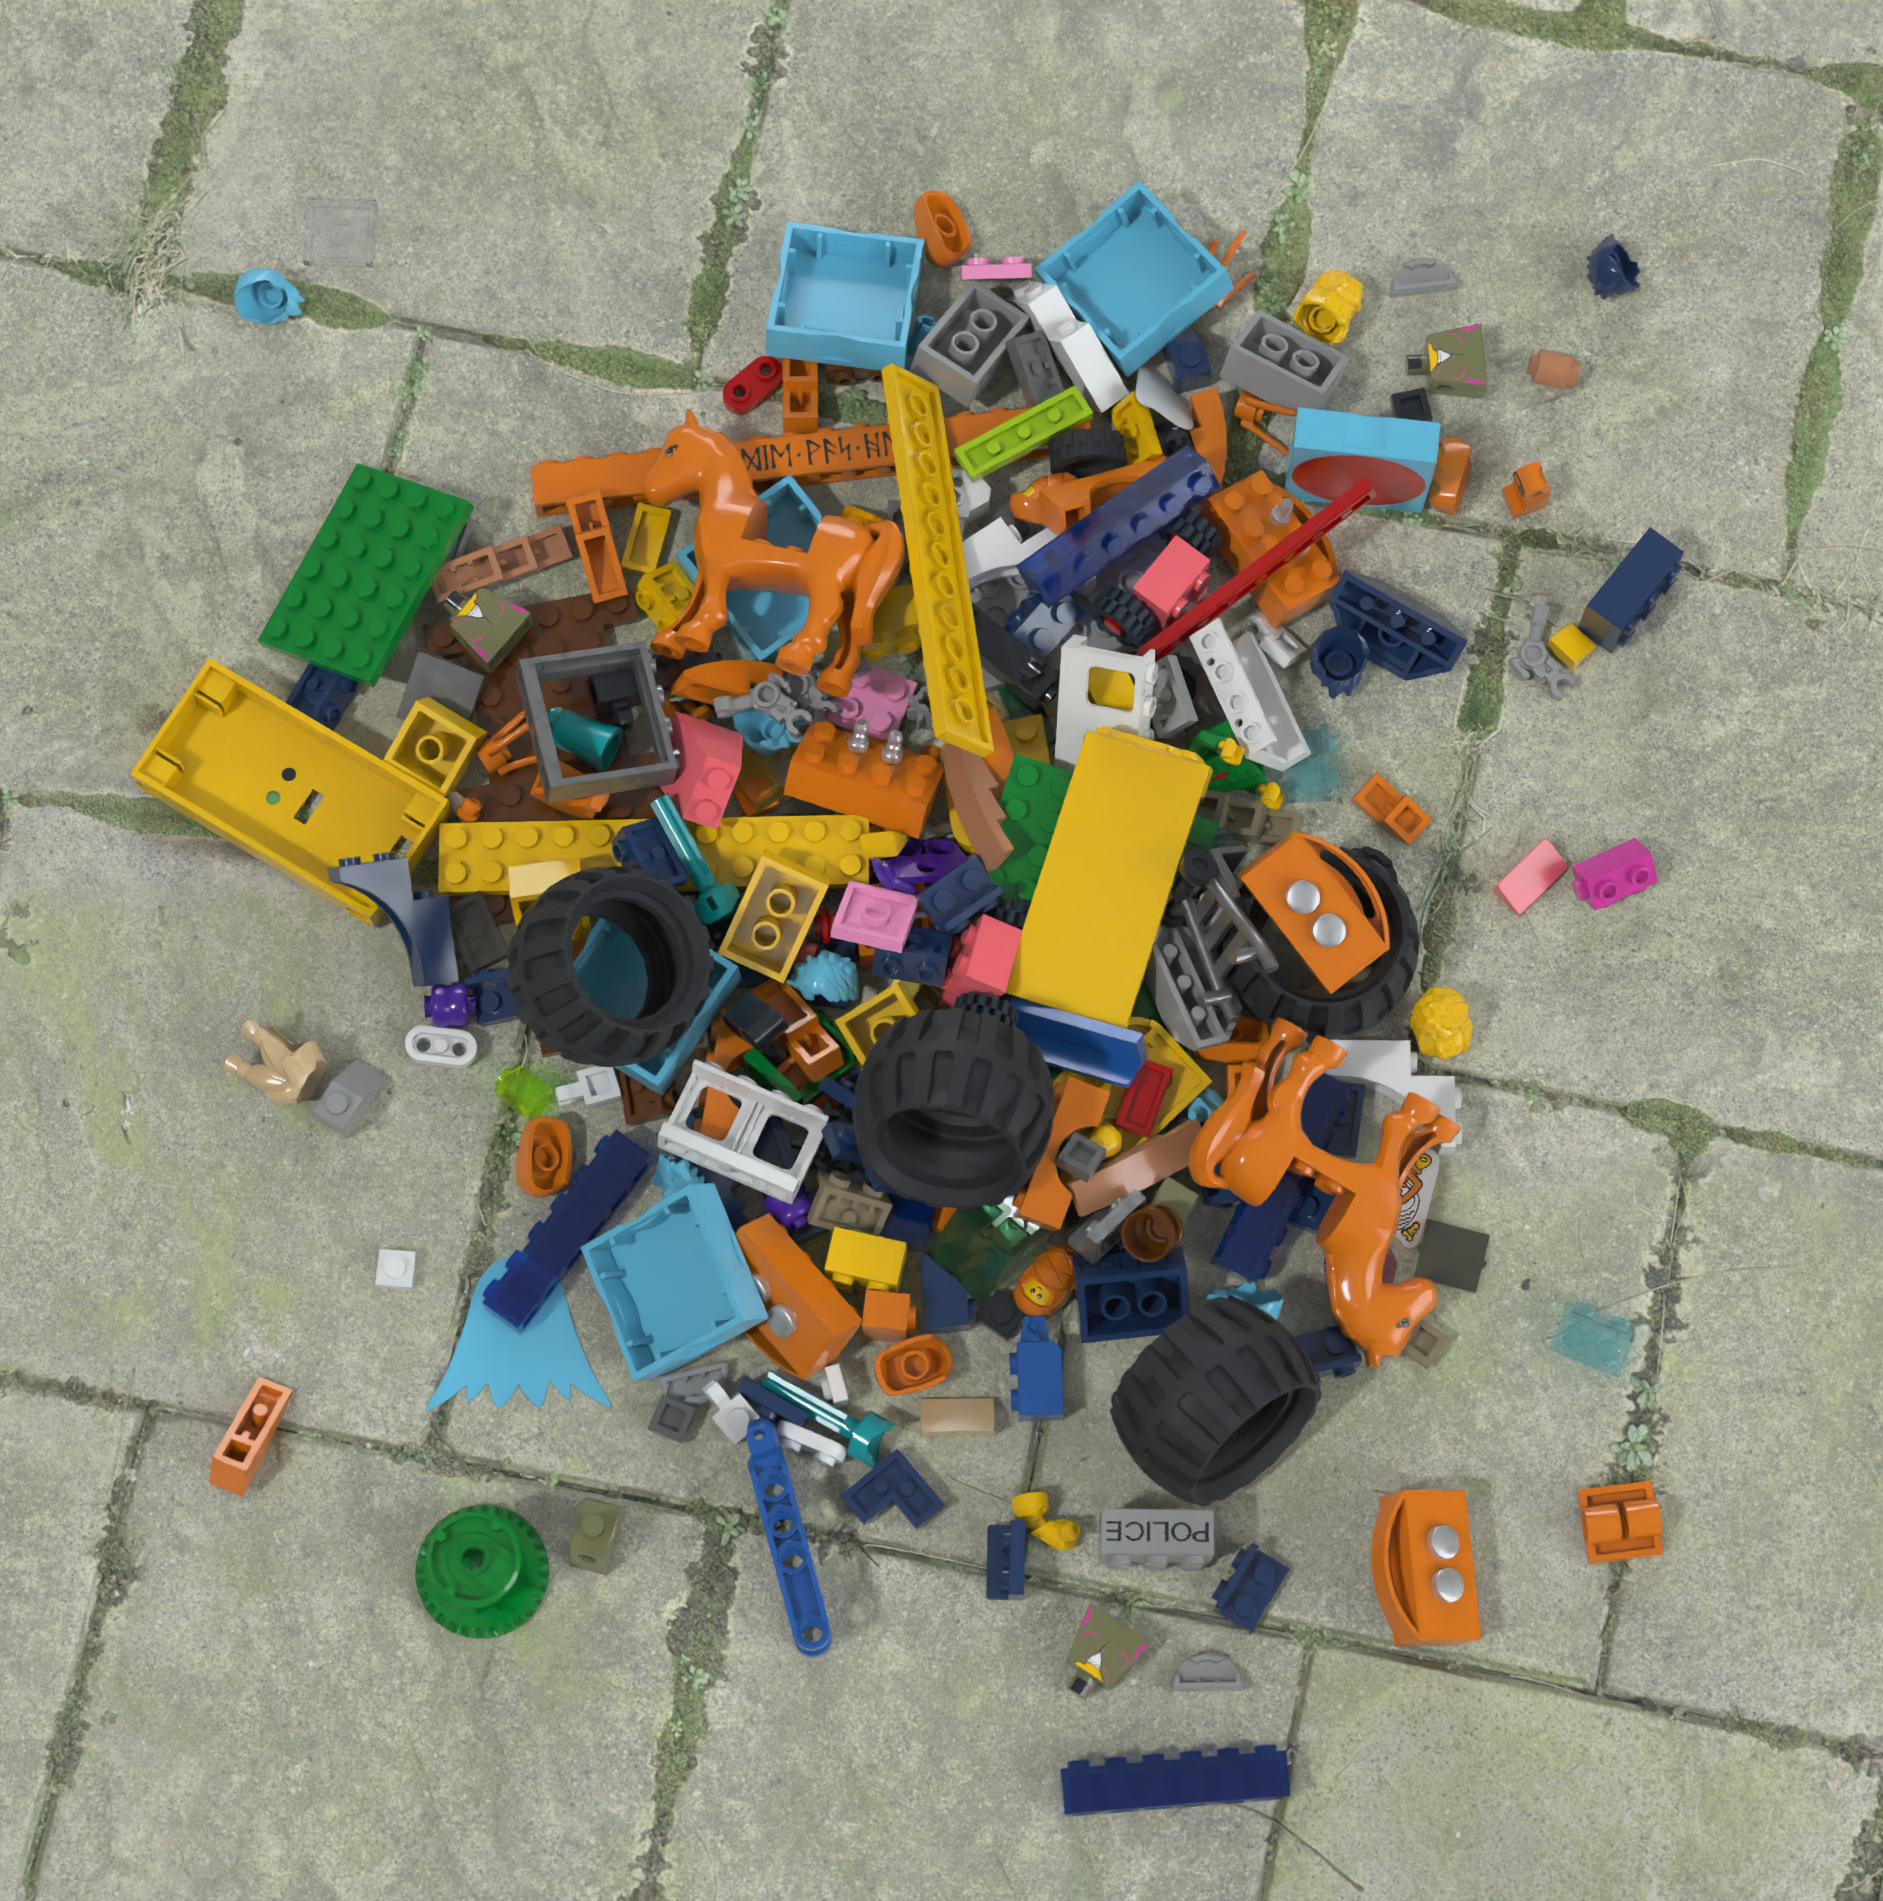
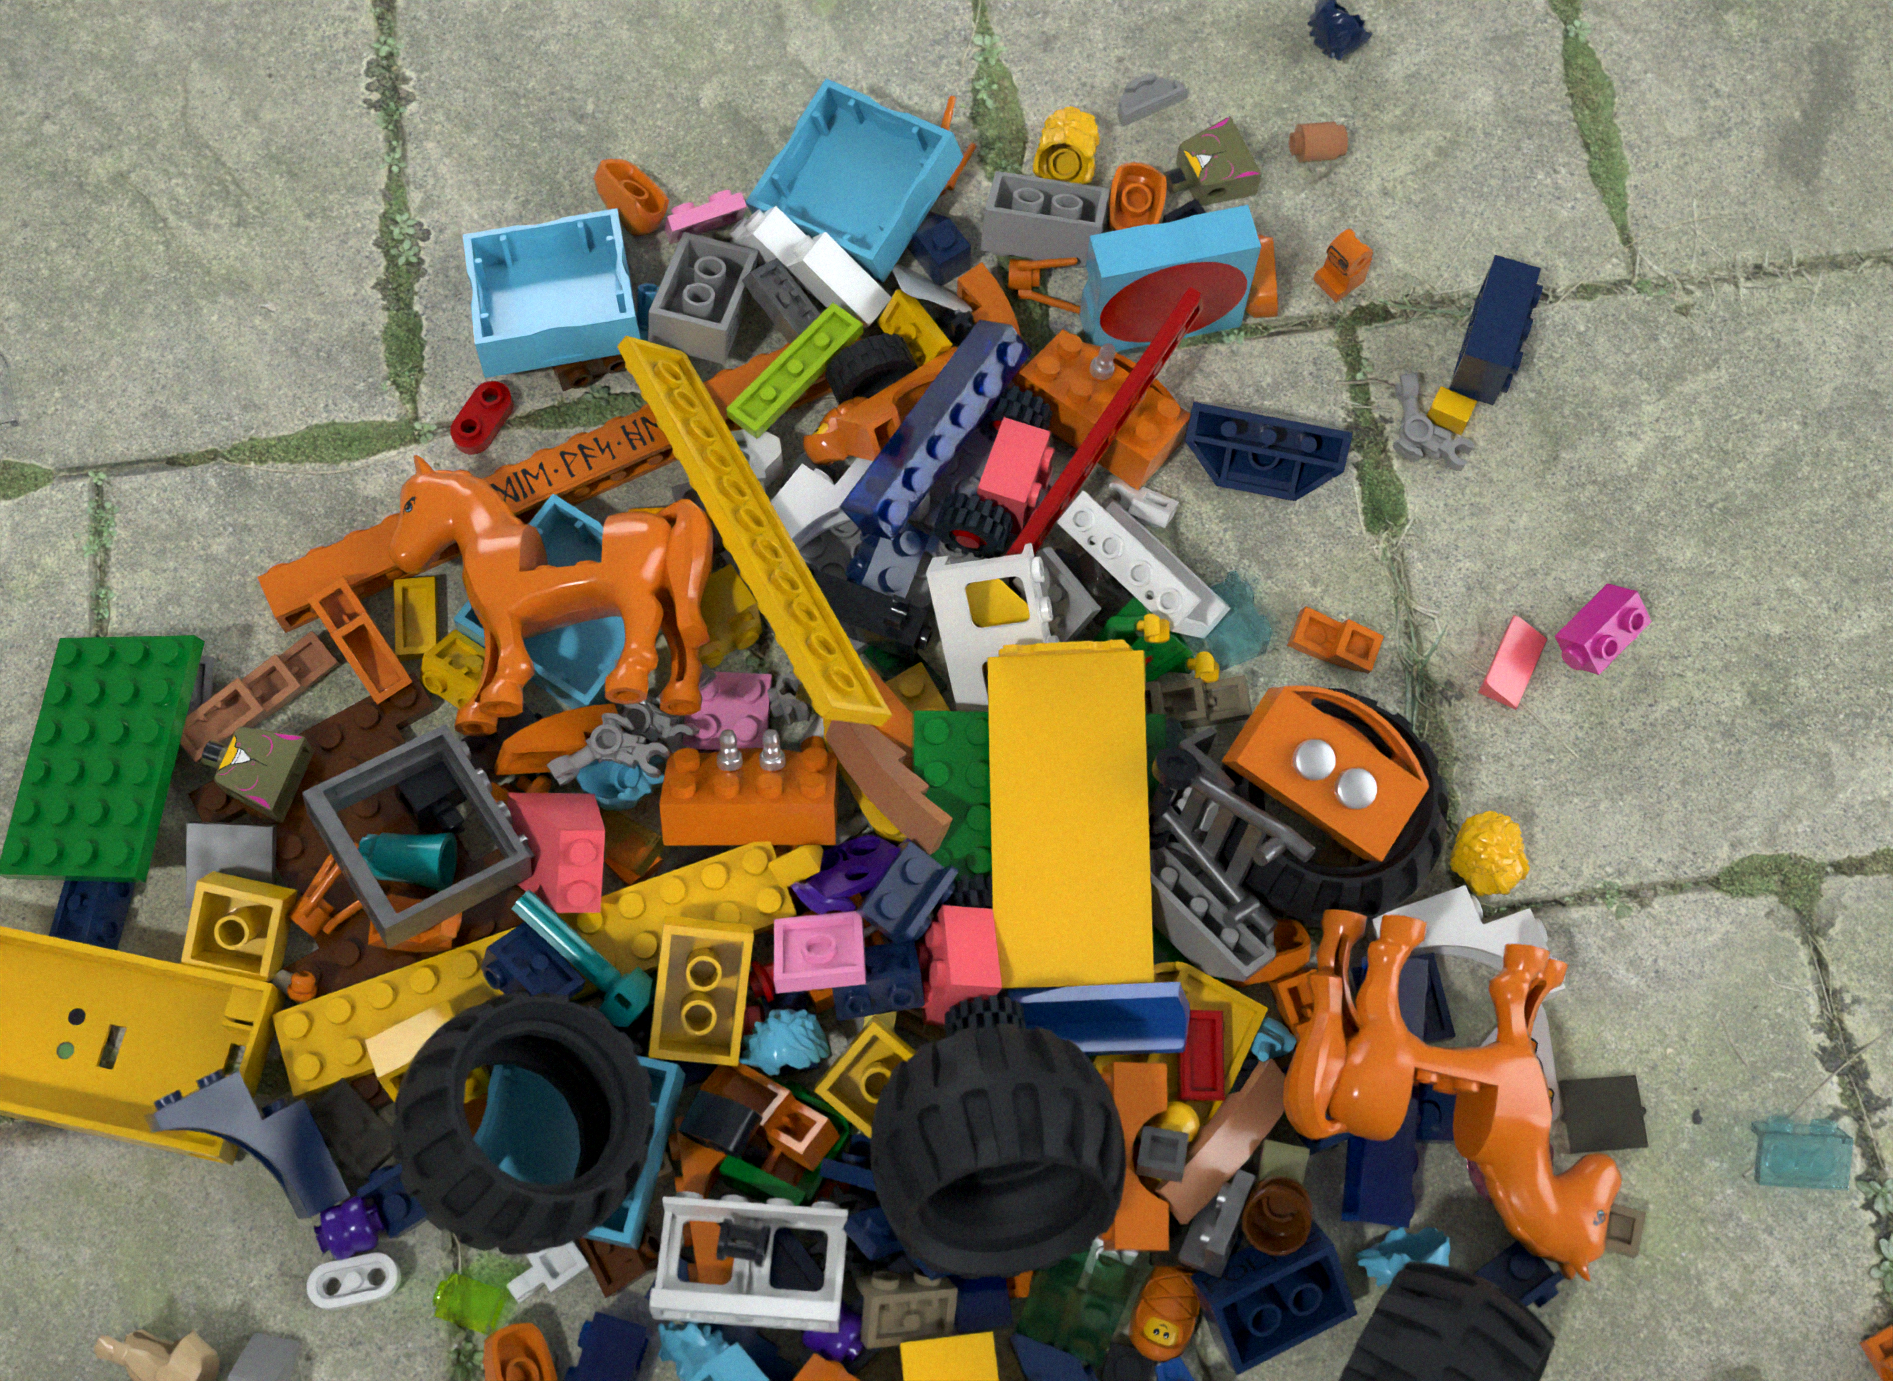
camera: 20 degrees left, 5 degrees down
(751, 1123) = (730, 1232): none -> black bush
(800, 396) = (536, 409): orange slope -> none
(1339, 659) = (1220, 498): dark blue hair -> none
(1370, 373) = (1136, 196): none -> orange piece

